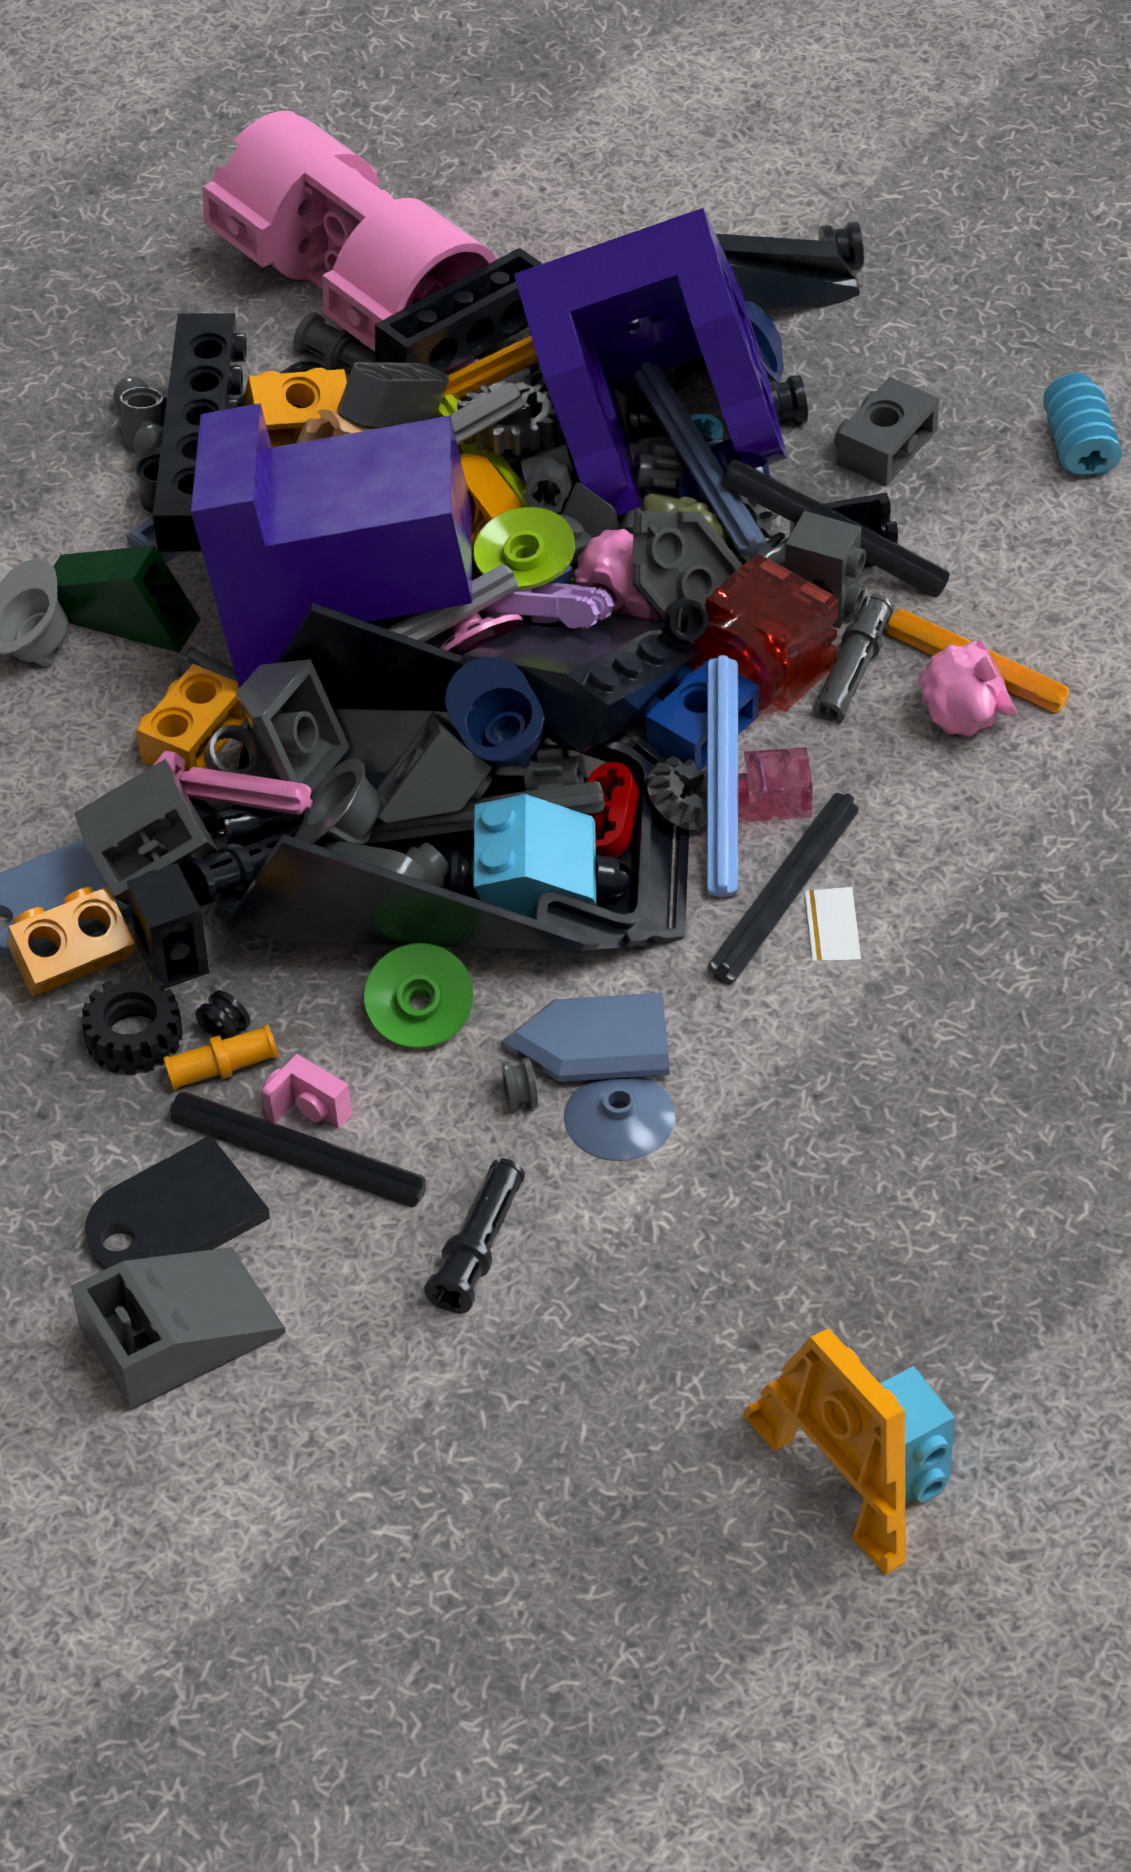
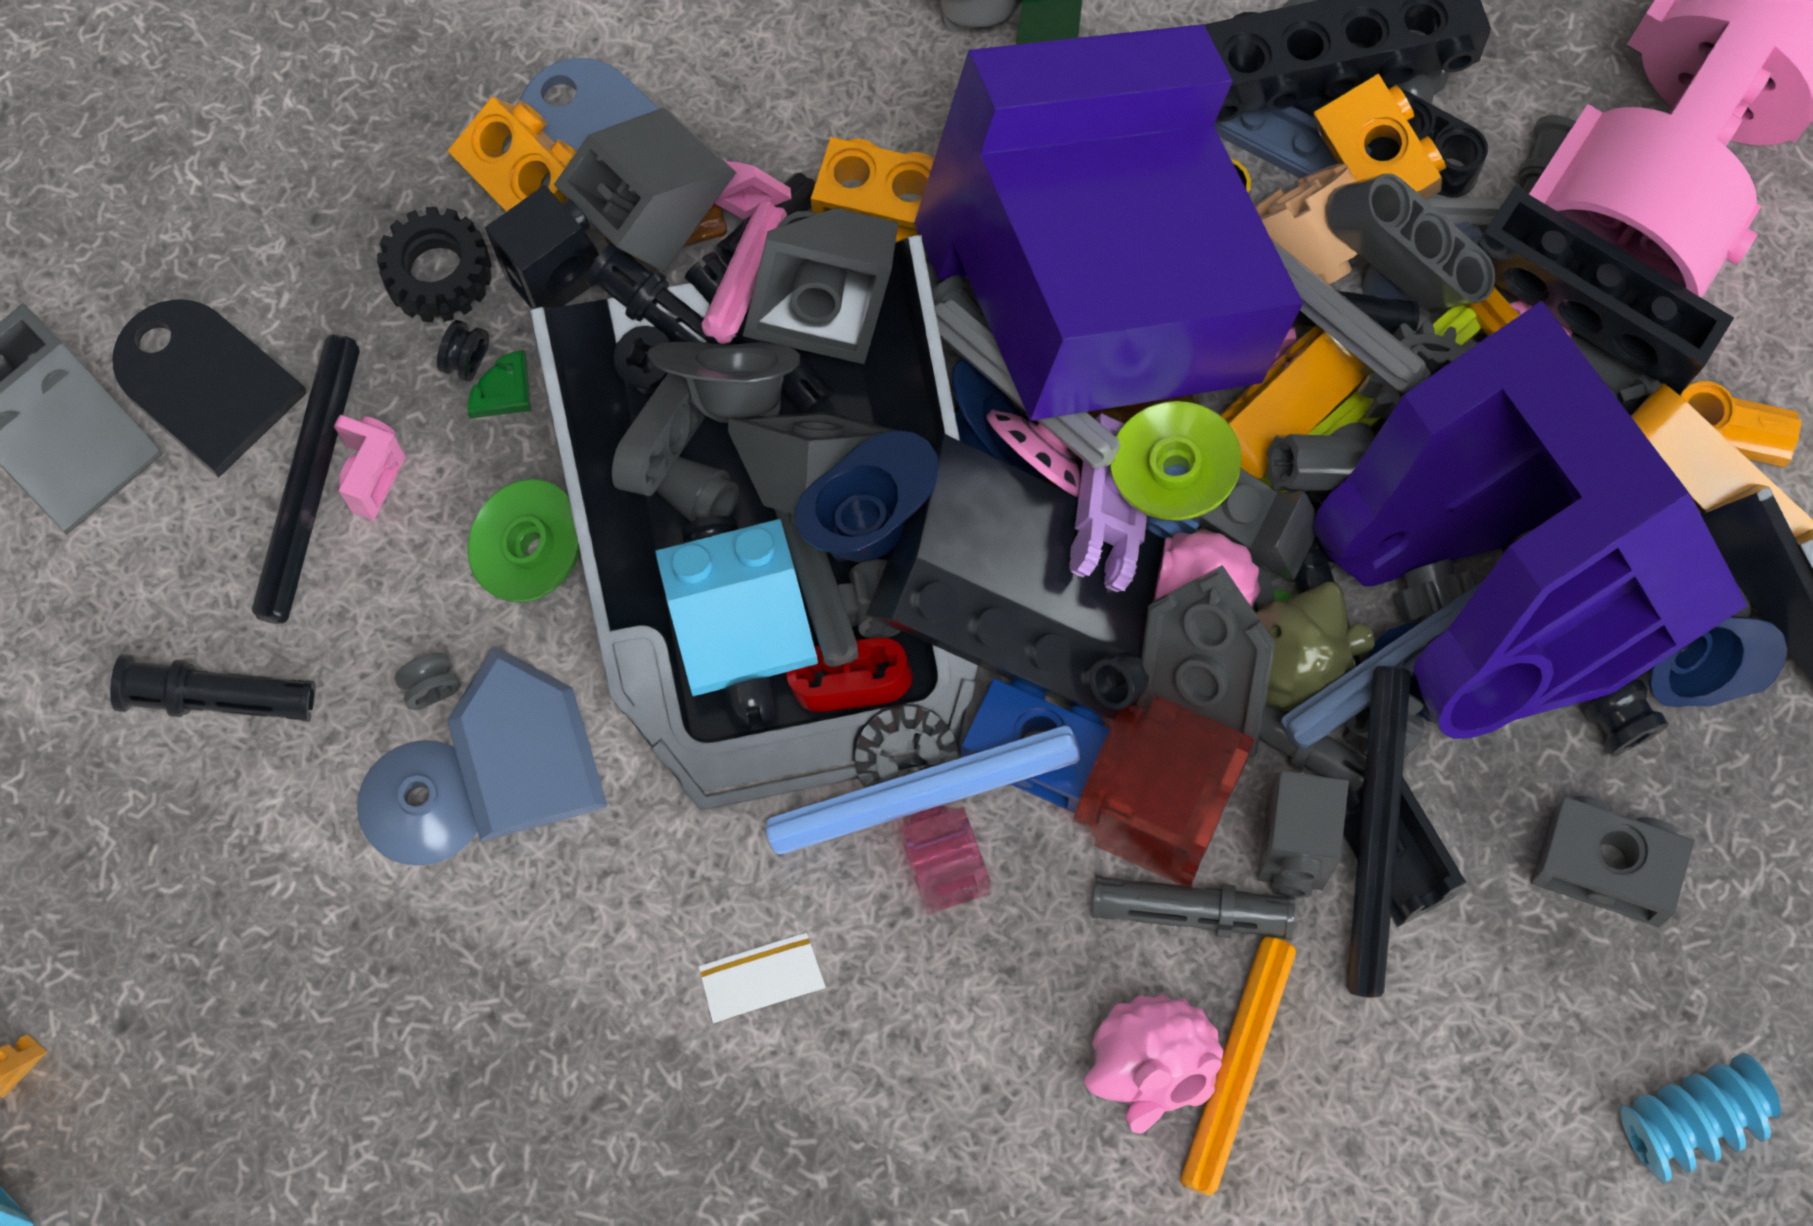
camera: 75 degrees right, 20 degrees up
(221, 1057) = (410, 365): light orange pin -> none
(264, 1003) = (502, 388): none -> green tile
(783, 888) = (797, 907): black axle -> none

